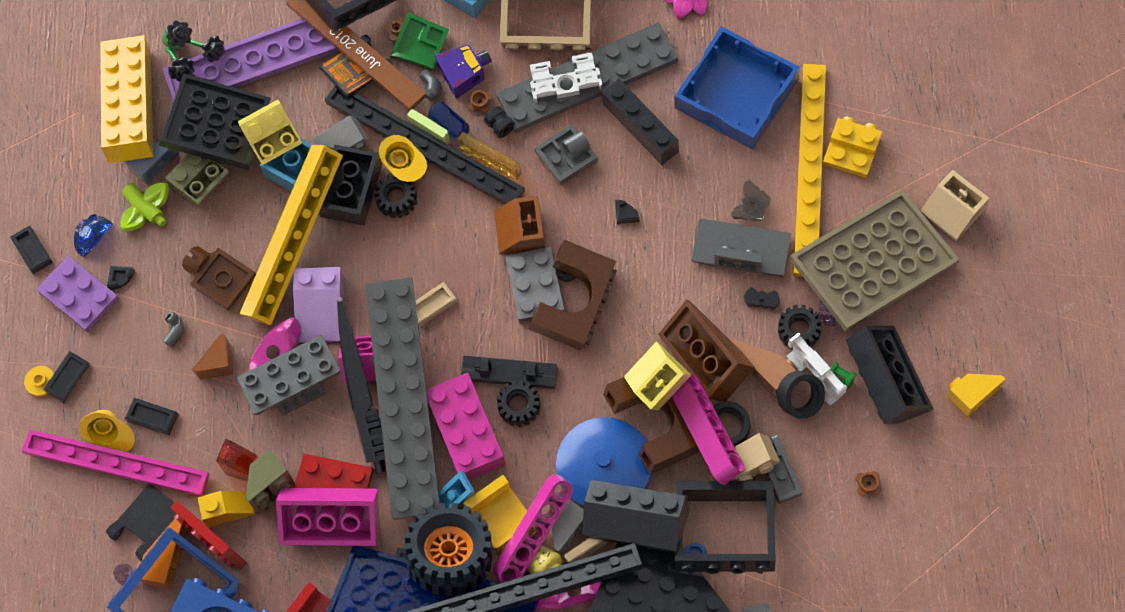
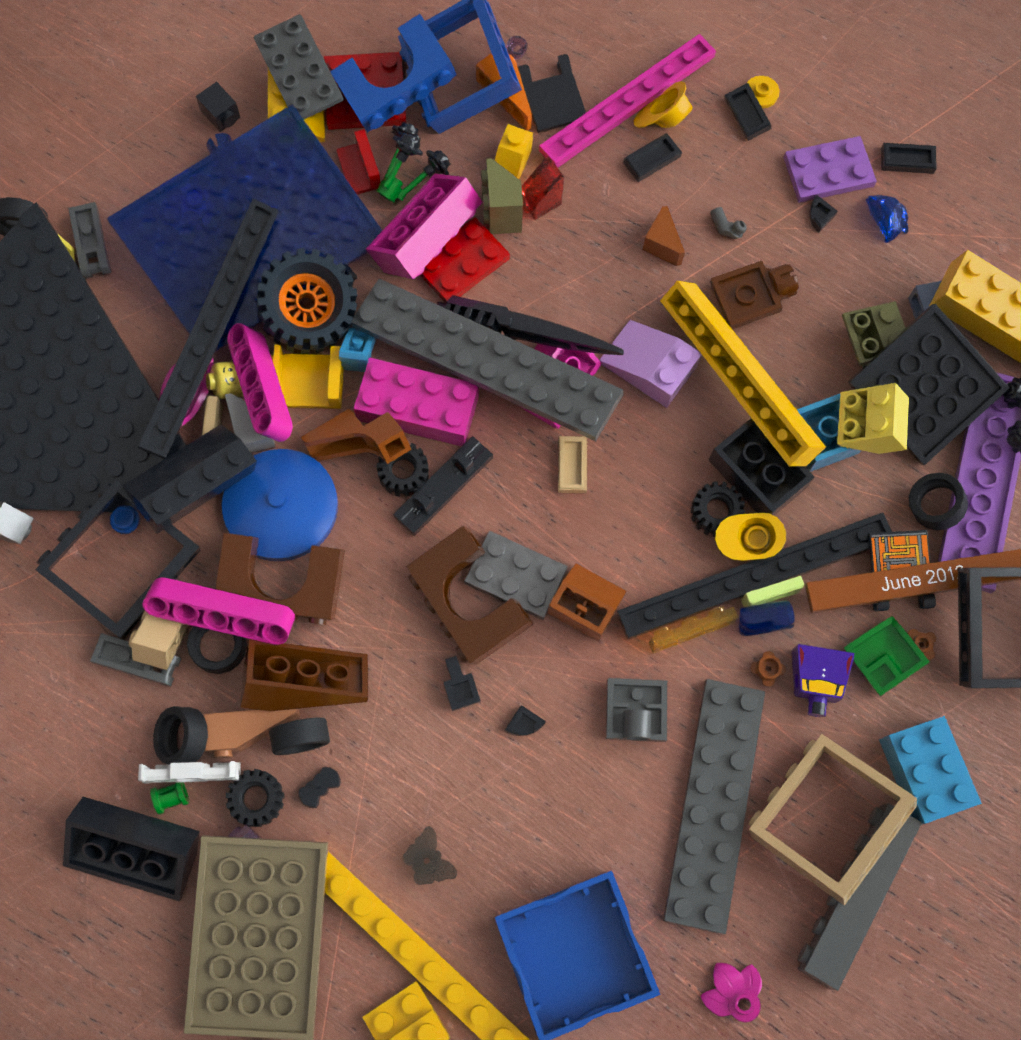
camera: 115 degrees right, 5 degrees up
(144, 206) = (881, 275): lime plant -> none
(207, 536) = (482, 113): red plate -> none
(274, 566) = (408, 145): none -> plant
(277, 75) = (932, 482): none -> black tyre
(283, 336) = (637, 307): dark pink piece -> none
(290, 378) = (592, 282): dark grey bracket -> none
(345, 133) = (822, 501): light grey slope -> none
(433, 85) = (823, 635): dark grey arm -> none
(499, 122) = (726, 668): black wheel -> none
(522, 451) = (347, 436): none -> dark orange arch
(547, 86) = (707, 791): white piece -> none
(635, 261) = (461, 688): none -> black plate
(640, 121) = (614, 814): black brick -> none
(656, 377) = (301, 594): light yellow slope -> none
(741, 247) = (389, 810): dark grey bracket -> none
(742, 324) = (299, 736): none -> black tyre
(863, 478) = (46, 726): dark orange plate -> none
(973, 391) = (37, 922): yellow slope -> none

